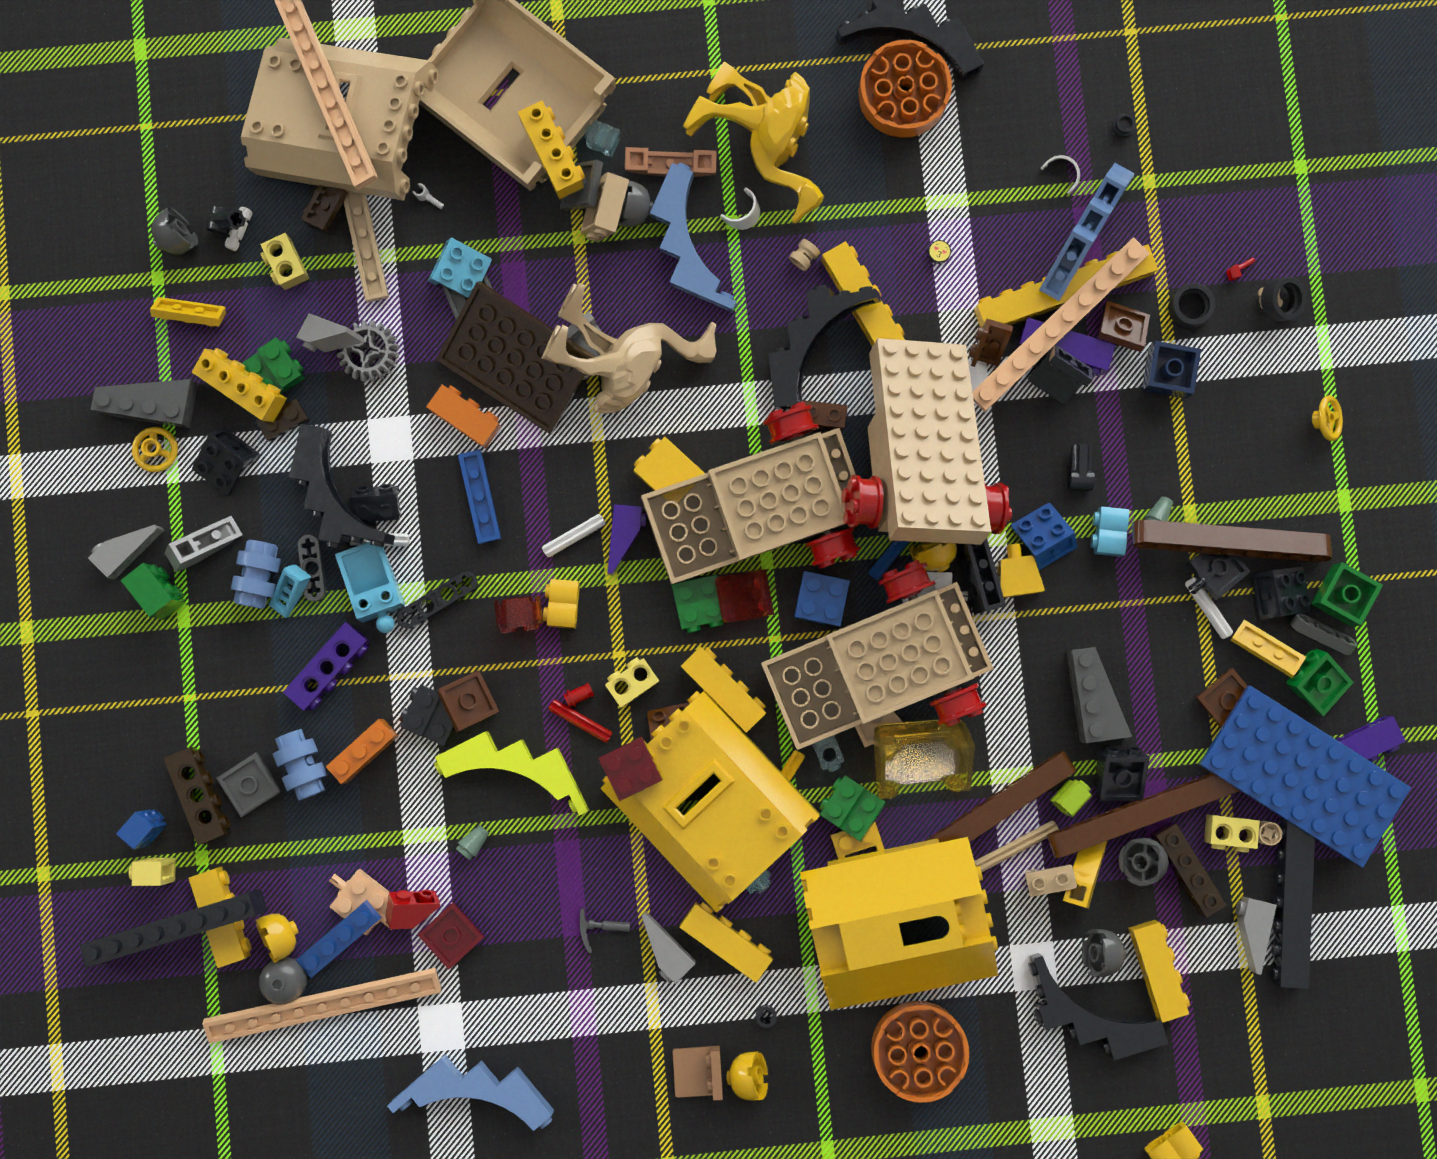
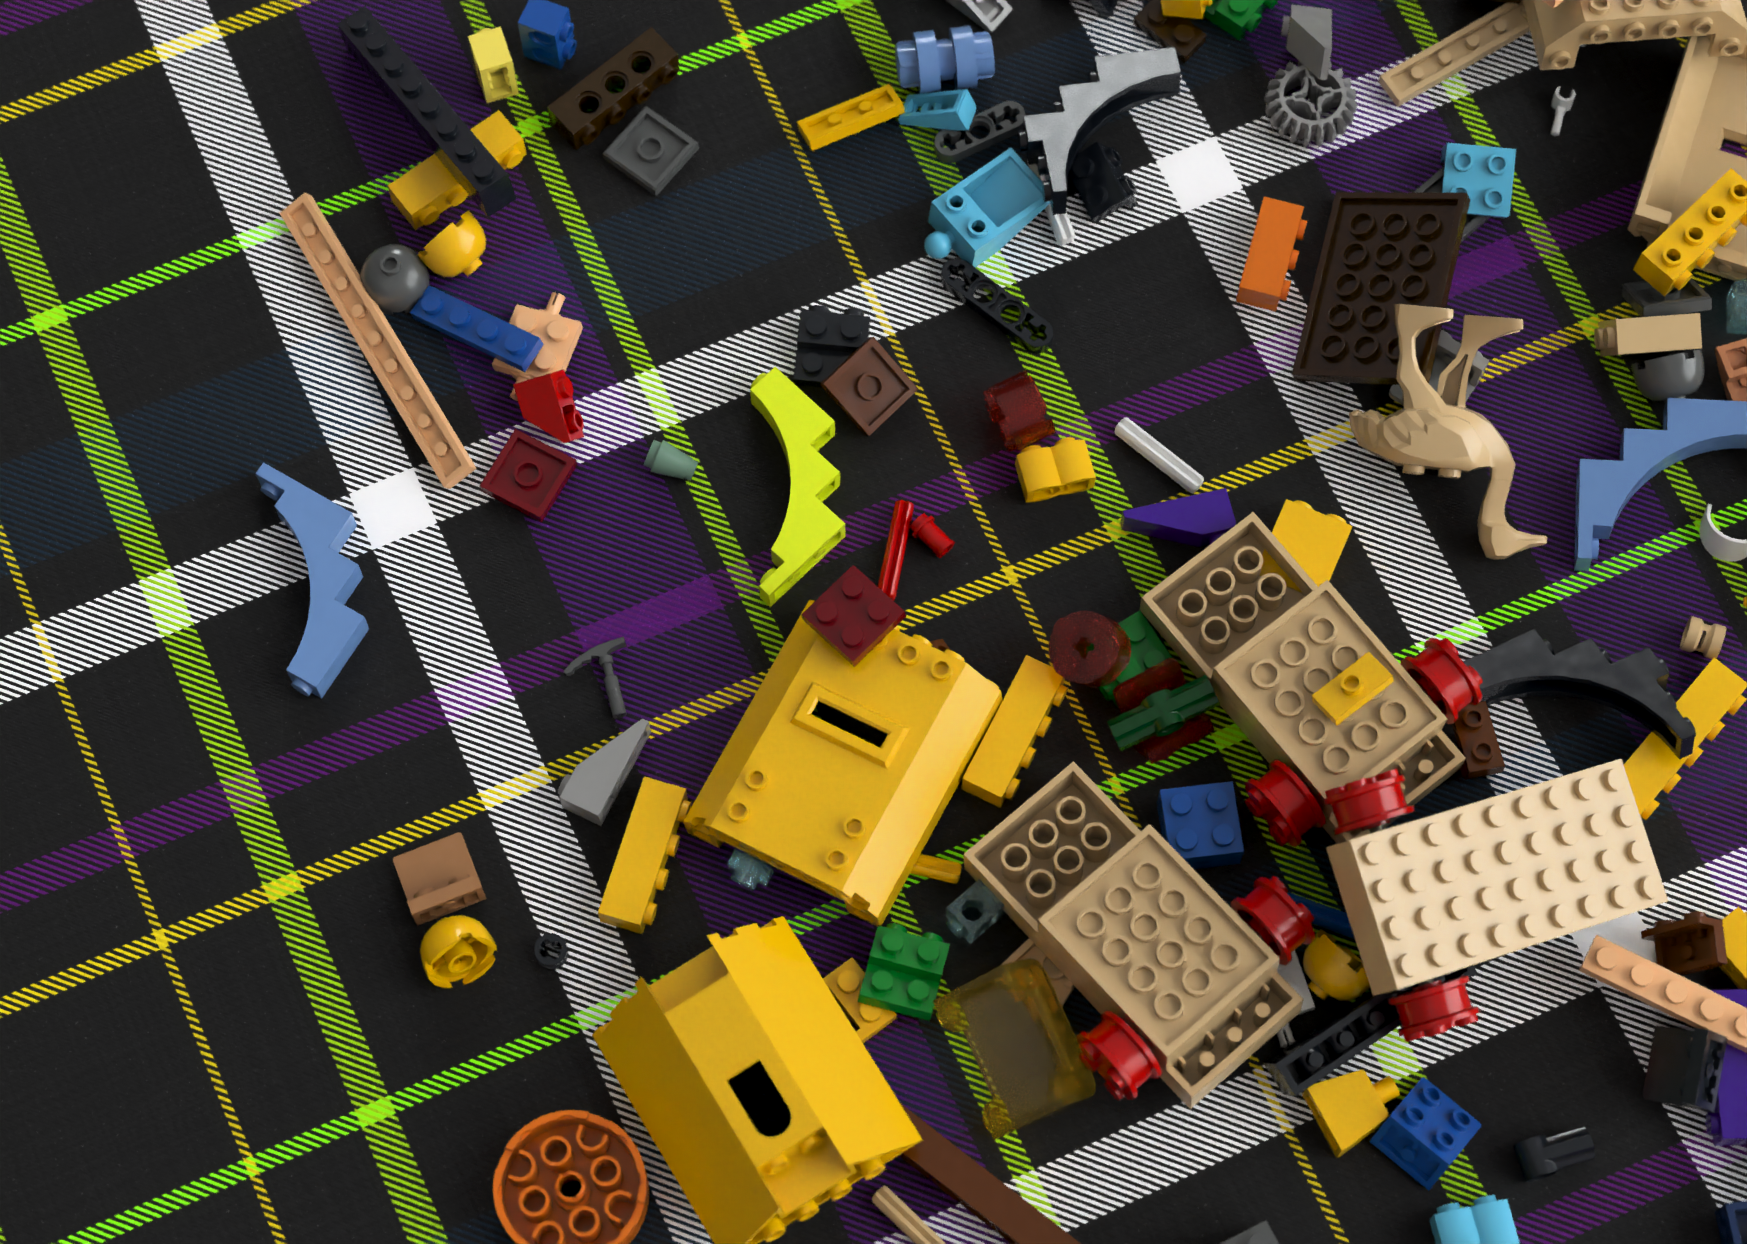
camera: 75 degrees right, 15 degrees down
(273, 648) = (850, 117): none -> yellow plate
(296, 756) = (713, 191): medium blue piece -> none
(298, 688) = (839, 178): dark purple brick -> none
(362, 751) = (749, 274): orange brick -> none
(479, 496) = (1164, 312): blue plate -> none
(635, 687) = (970, 607): light yellow brick -> none
(697, 639) = (1075, 634): none -> clear red brick
(748, 597) = (1163, 712): none -> dark green piece
(784, 482) = (1352, 688): none -> yellow plate

